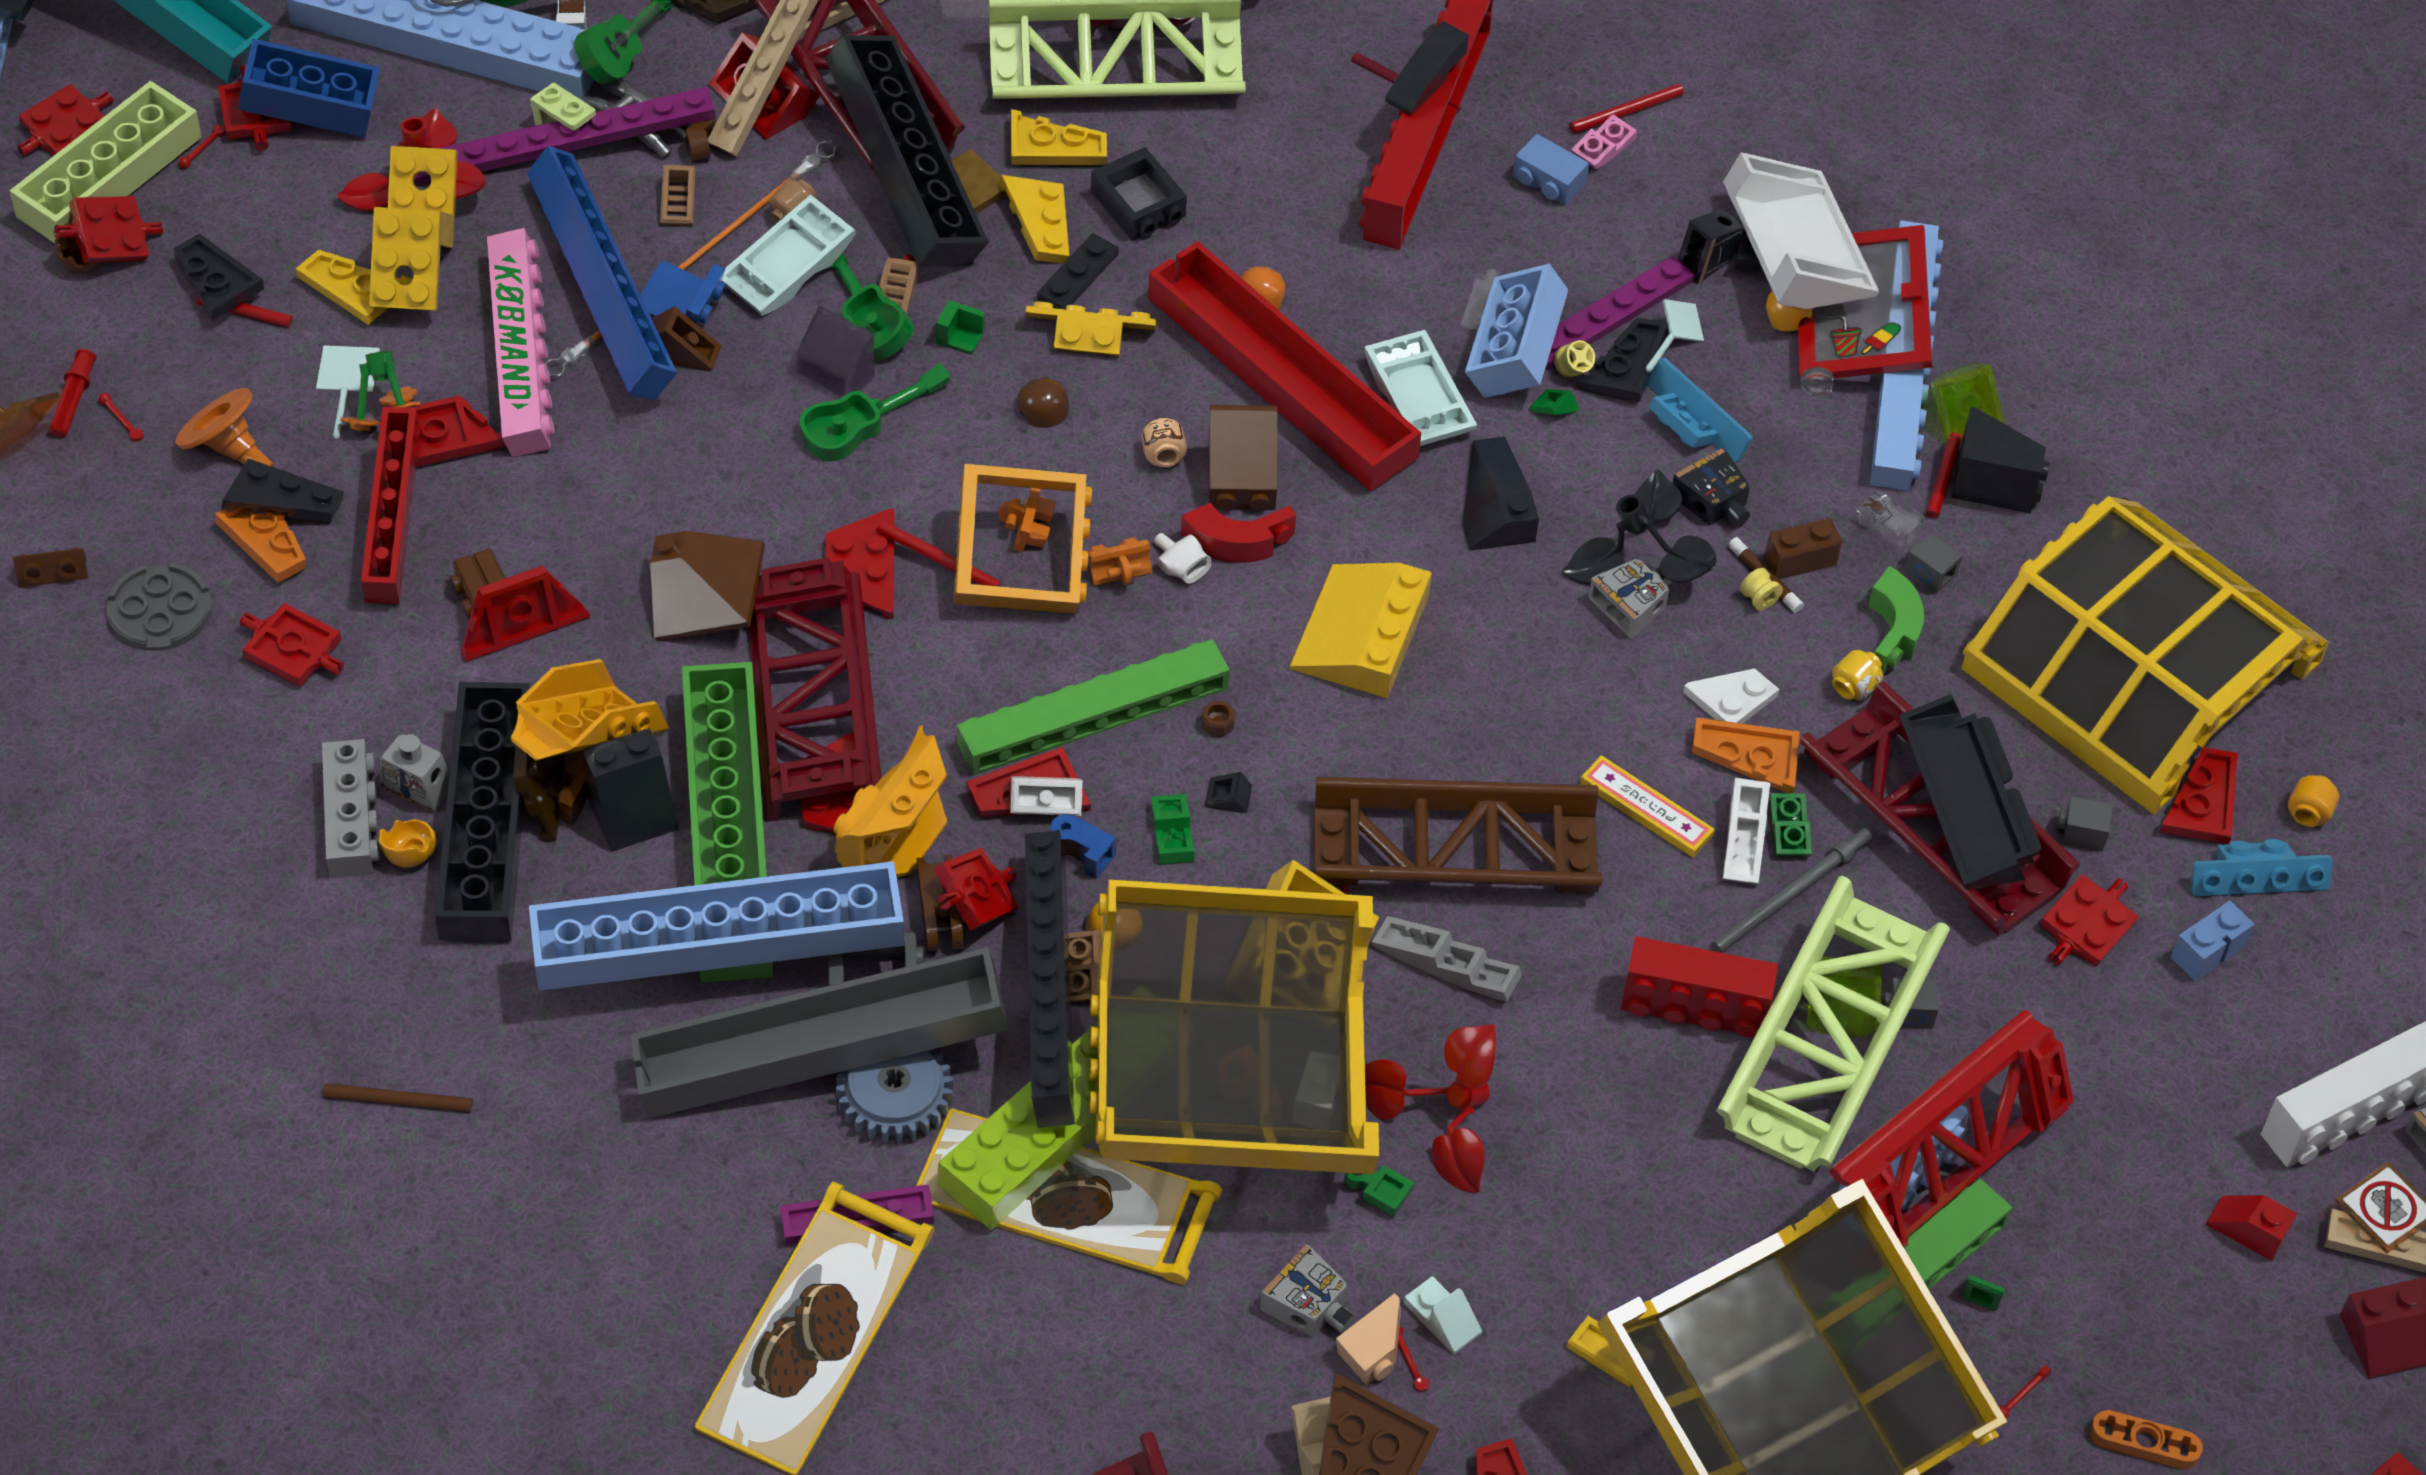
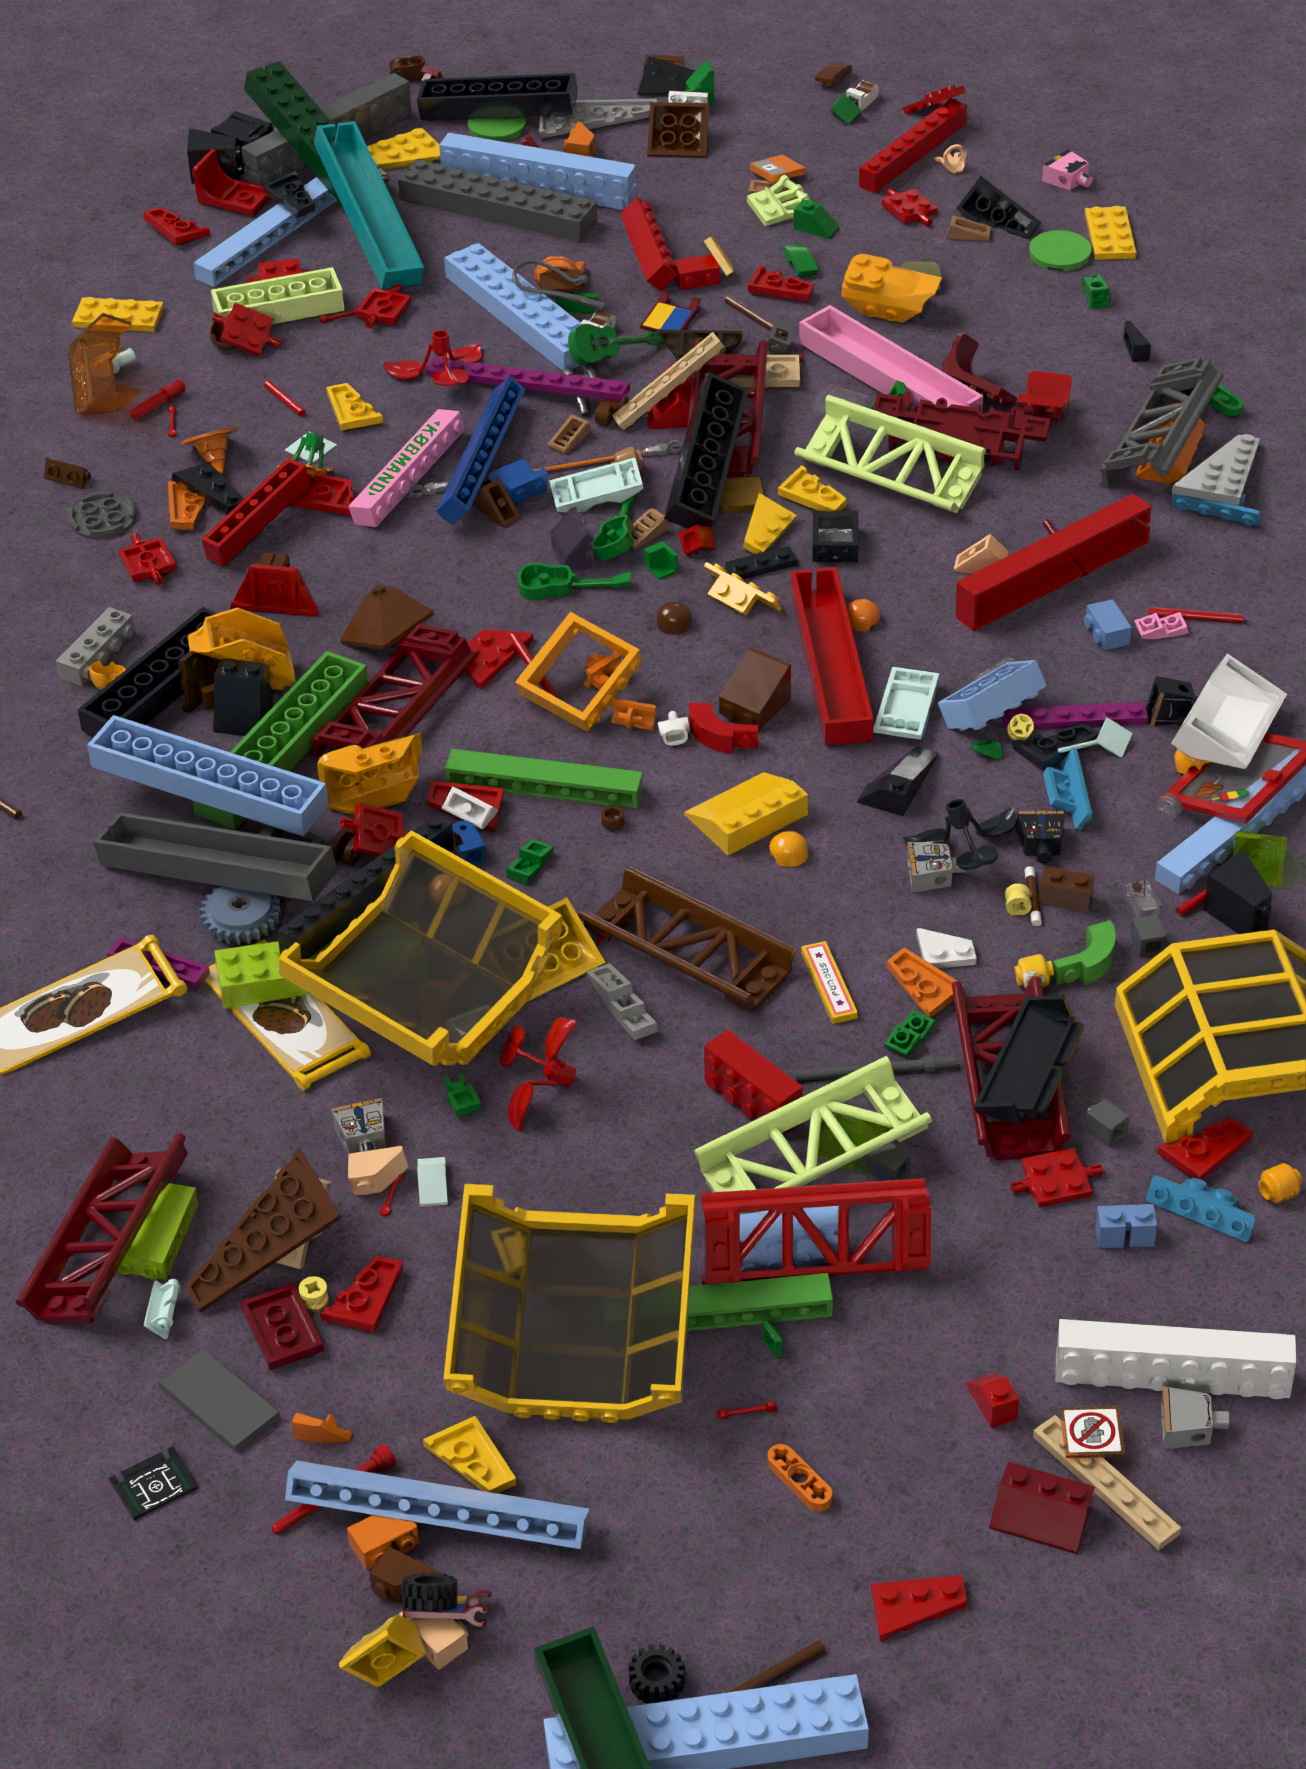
camera: 40 degrees right, 10 degrees down
(215, 275) = (282, 375): black wing -> none
(308, 88) = (412, 302): blue brick -> none
(413, 228) = (389, 386): yellow bracket -> none
(415, 772) = (139, 632): light grey torso -> none
(560, 105) = (540, 362): yellowish green bracket -> none
(977, 277) = (696, 539): none -> red panel
(1164, 442) = (720, 665): light nougat head -> none
(1229, 793) = (583, 859): black slope -> none
(1333, 144) = (980, 555): none -> light nougat slope
(1428, 68) = (1059, 527): black slope -> none
(1454, 654) = (789, 849): none -> light orange hair
(1746, 831) = (874, 1020): white slope -> none

